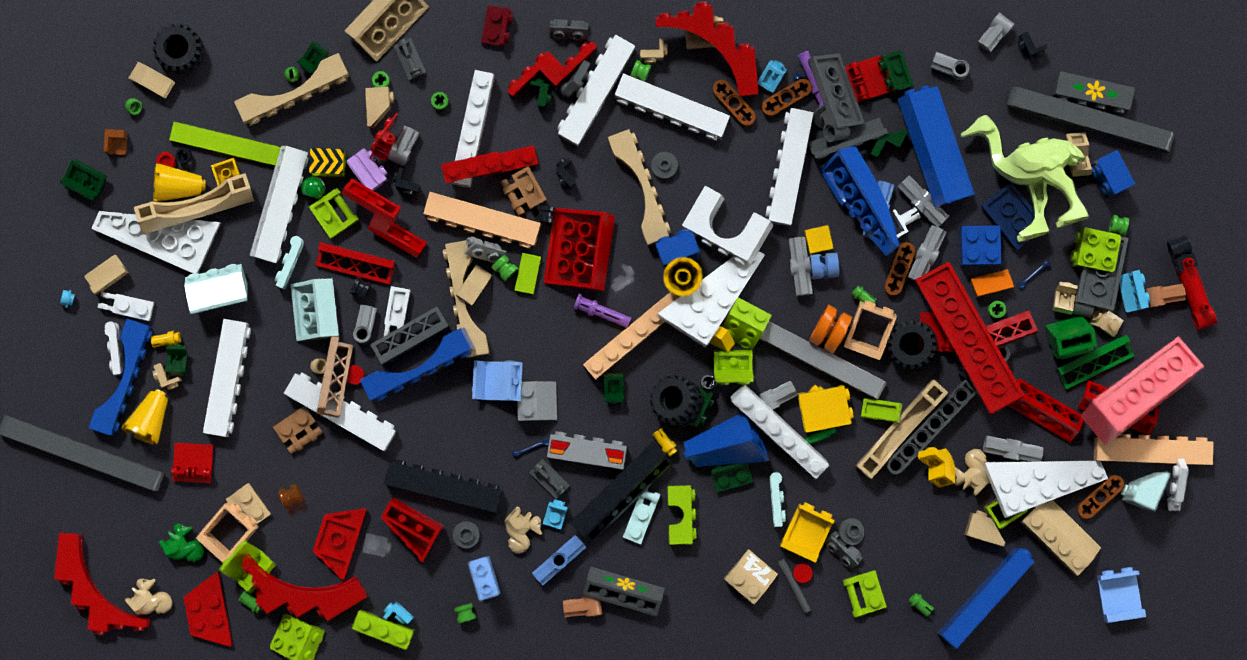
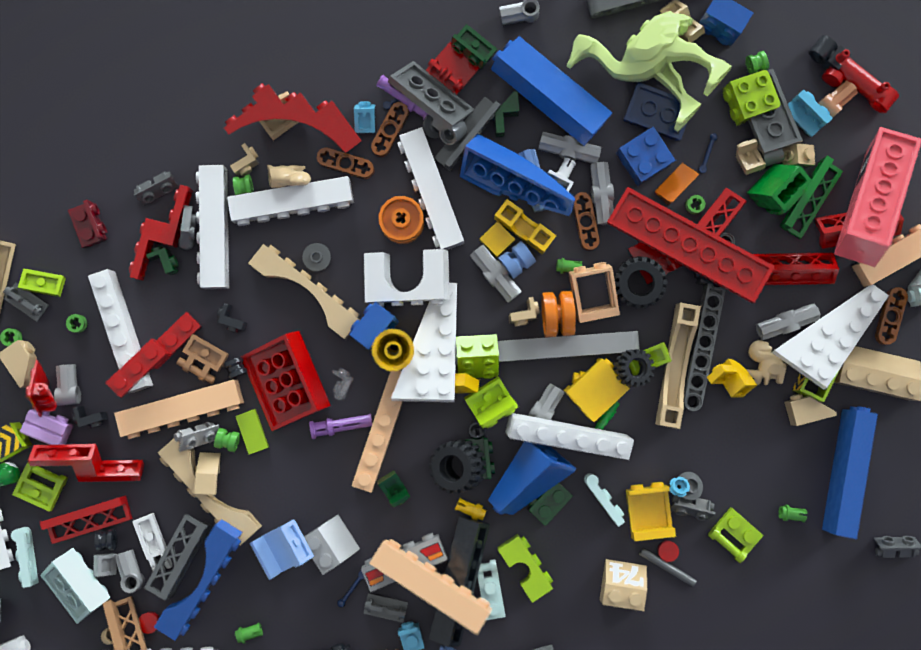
camera: 30 degrees left, 0 degrees up
(348, 307) = (104, 565): none -> light grey plate
(429, 431) = (248, 633): none -> bright green pin
(432, 51) = (41, 282): none -> lime plate
(599, 479) = (431, 586): none -> light nougat brick
(682, 86) = (287, 175): none -> tan animal
(754, 166) = (398, 208): none -> orange wheel
(799, 314) = (522, 318): none -> tan bracket
(846, 244) = (518, 223): none -> yellow arch
(847, 525) = (684, 486): none -> medium azure plate
(875, 411) = (645, 368): none -> black tyre
(1173, 275) = (833, 77): none -> red tile

